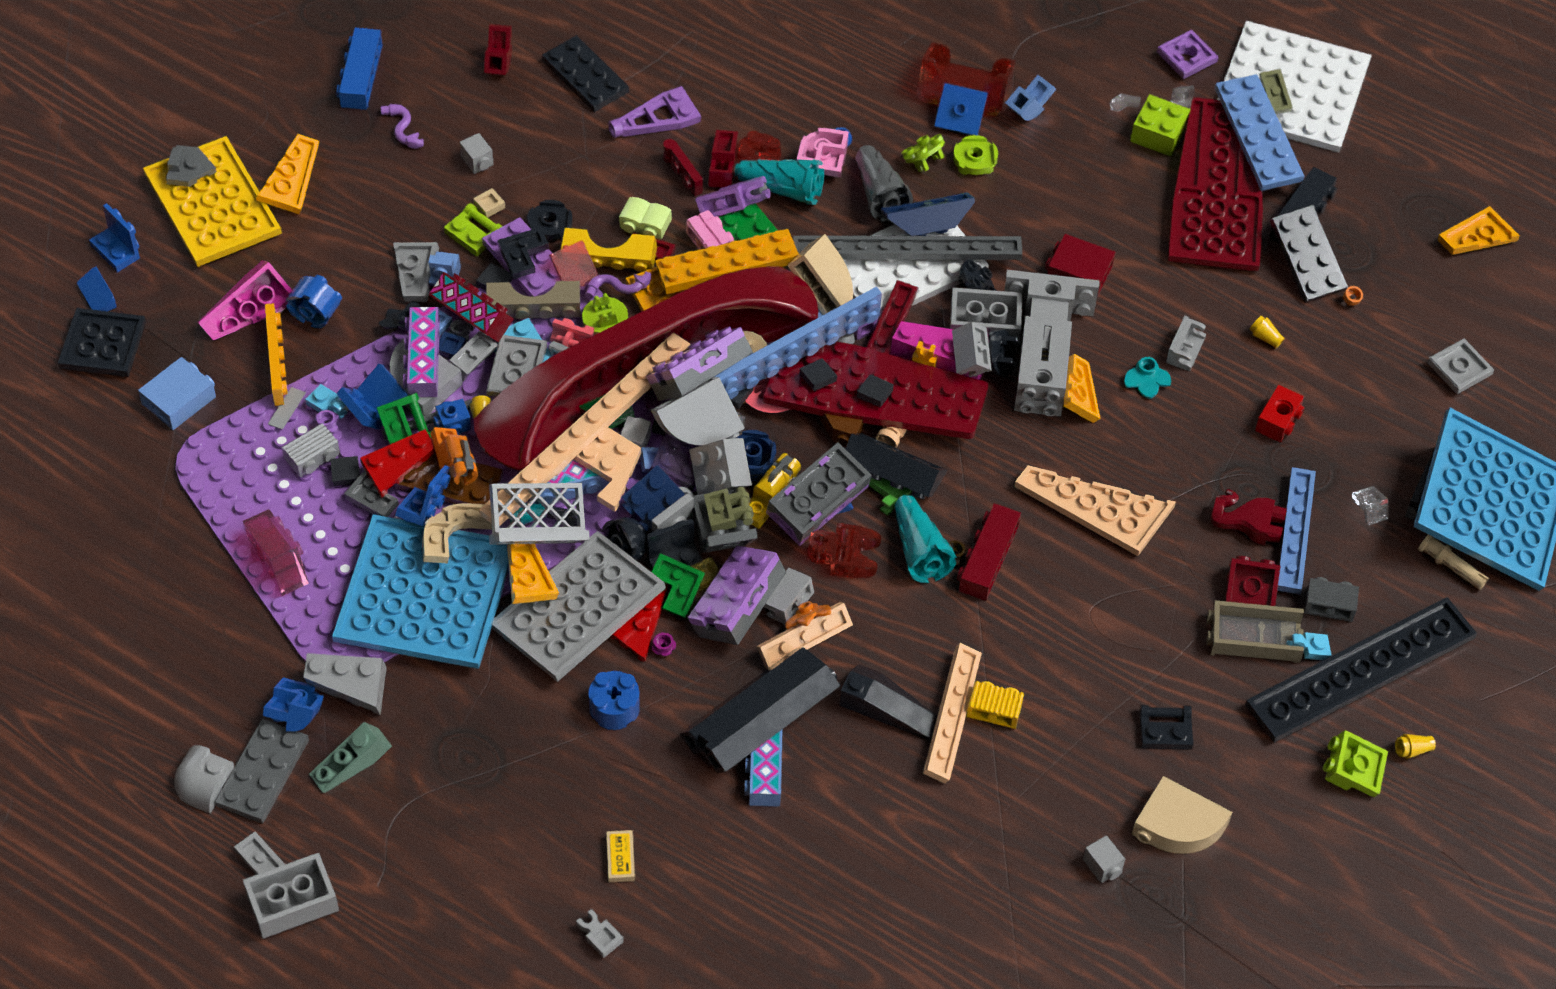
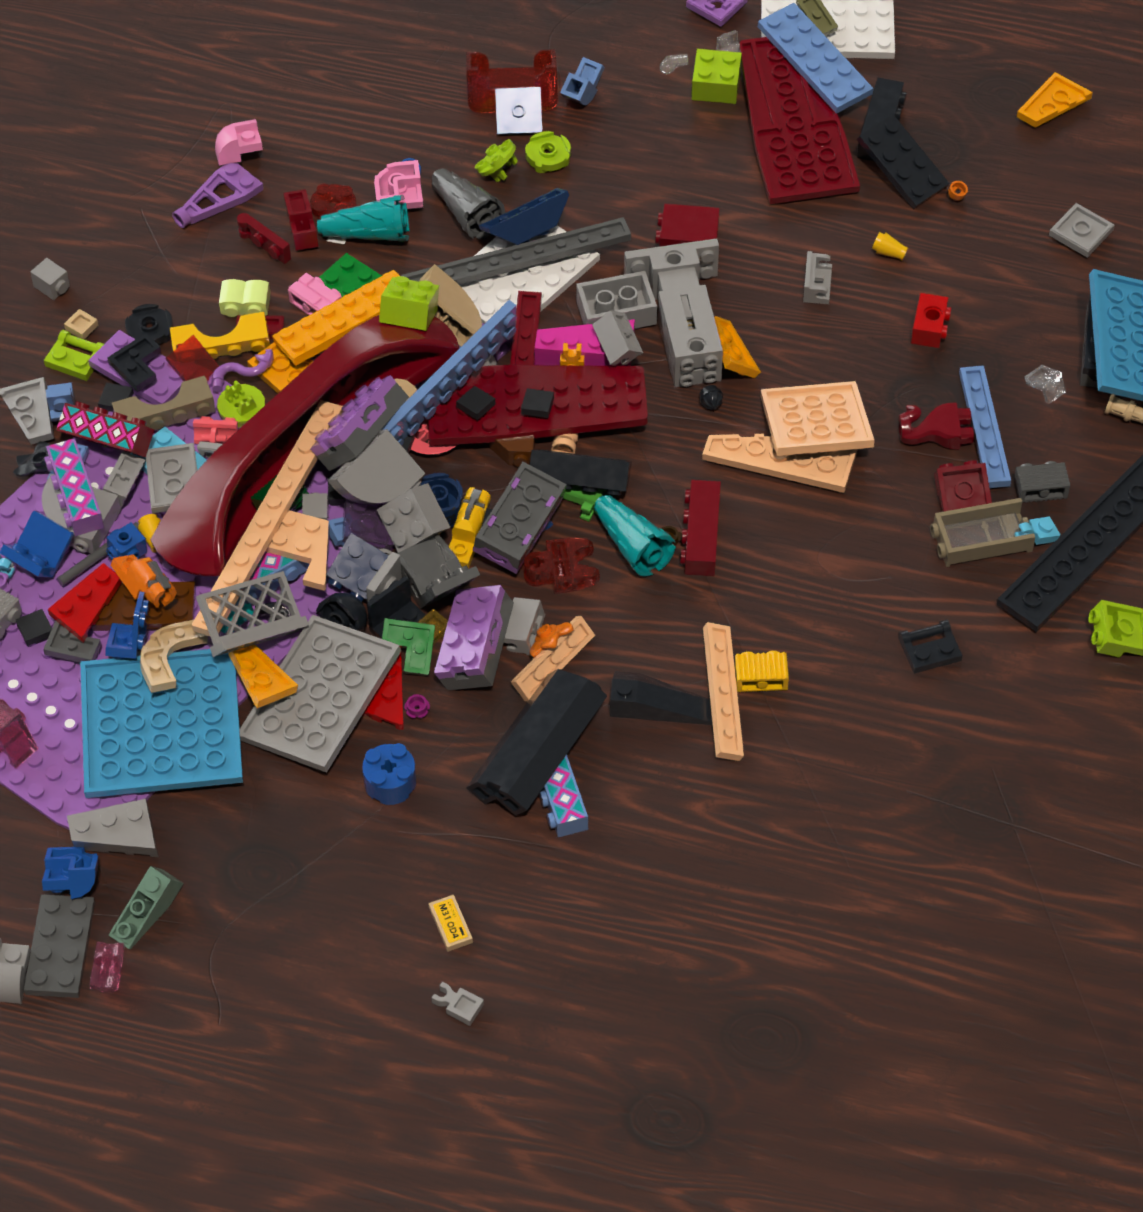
camera: 15 degrees left, 0 degrees up
(257, 854) = (91, 1032): light grey plate -> none
(291, 895) = (137, 1057): light grey brick -> none
(295, 802) = (107, 966): none -> clear pink hips
(395, 421) = (69, 562): green plate -> none
(450, 344) = (97, 473): dark blue plate -> none
(461, 325) = (101, 452): dark grey plate -> none
(499, 49) = (35, 170): dark red brick -> none
(585, 73) = (130, 172): black plate -> none
(689, 69) = (236, 140): none -> bright pink brick
(720, 509) = (431, 560): olive plate -> none
(734, 197) = (327, 253): medium lavender plate -> none
(783, 264) = (409, 303): none -> lime brick
(975, 276) = (592, 267): black plate -> none
(1002, 351) = (645, 333): black plate -> none
(1043, 429) = (711, 397): none -> black plate
(1104, 859) = (918, 788): light grey brick -> none
(1135, 478) = (816, 418): none -> light nougat plate
(1147, 380) = (791, 320): teal plate -> none
(1180, 820) = (976, 729): tan brick -> none

